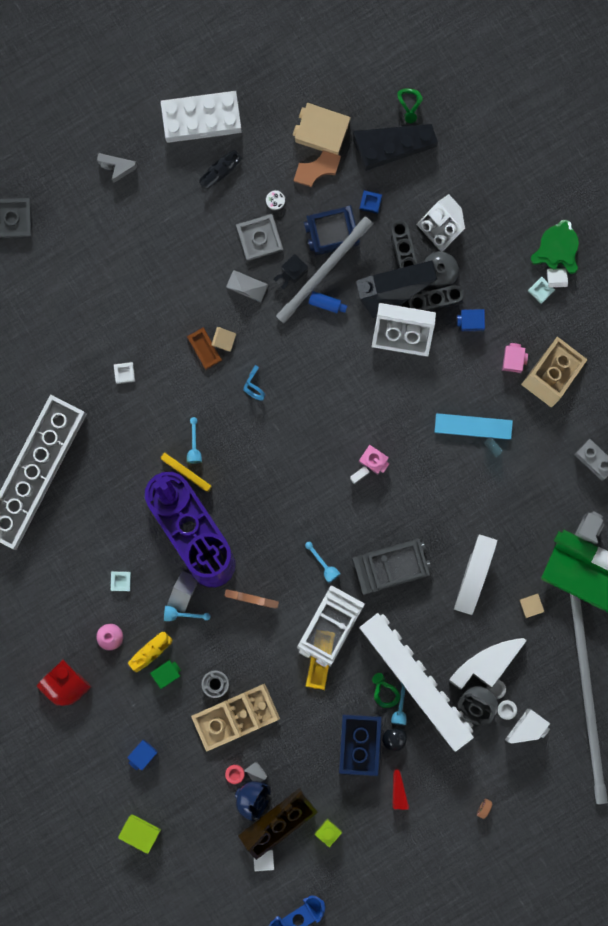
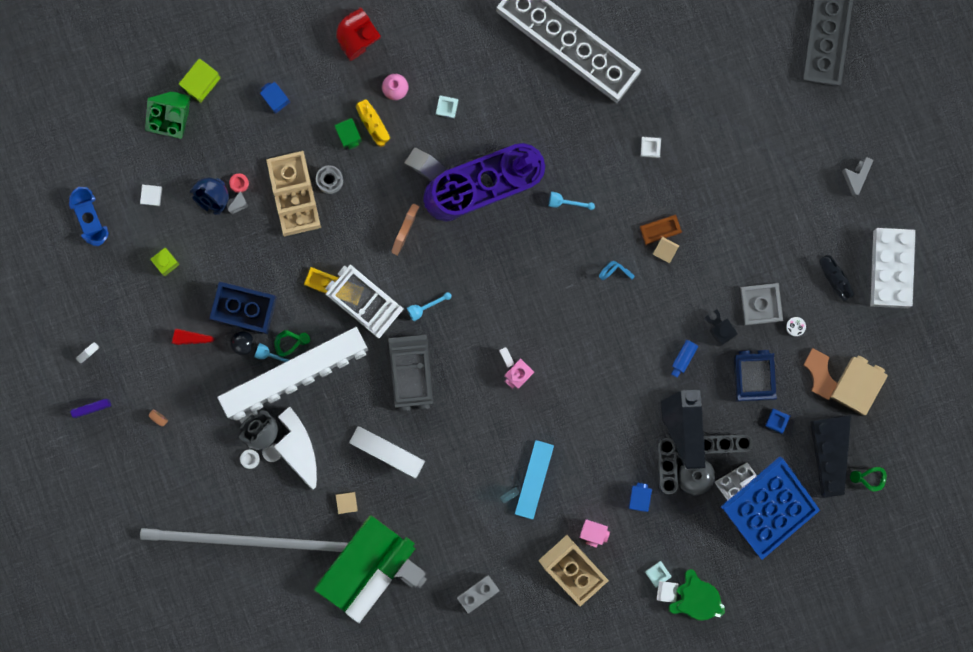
camera: 95 degrees right, 0 degrees up
(171, 614) = (405, 149): medium azure hinge -> none
(179, 859) = (167, 114): none -> green slope
(186, 472) = (541, 188): yellow tile -> none
(247, 286) = (715, 283): light grey slope -> none
(277, 824) = (183, 214): dark brown wedge -> none
(360, 229) = (748, 401): light grey piece -> none
(403, 329) = (642, 427): white brick -> none
(433, 892) = (87, 353): none -> white tile
(458, 191) = (770, 508): none -> blue plate
(488, 878) = (90, 408): none -> dark purple tile
(528, 728) = (226, 475): white slope -> none

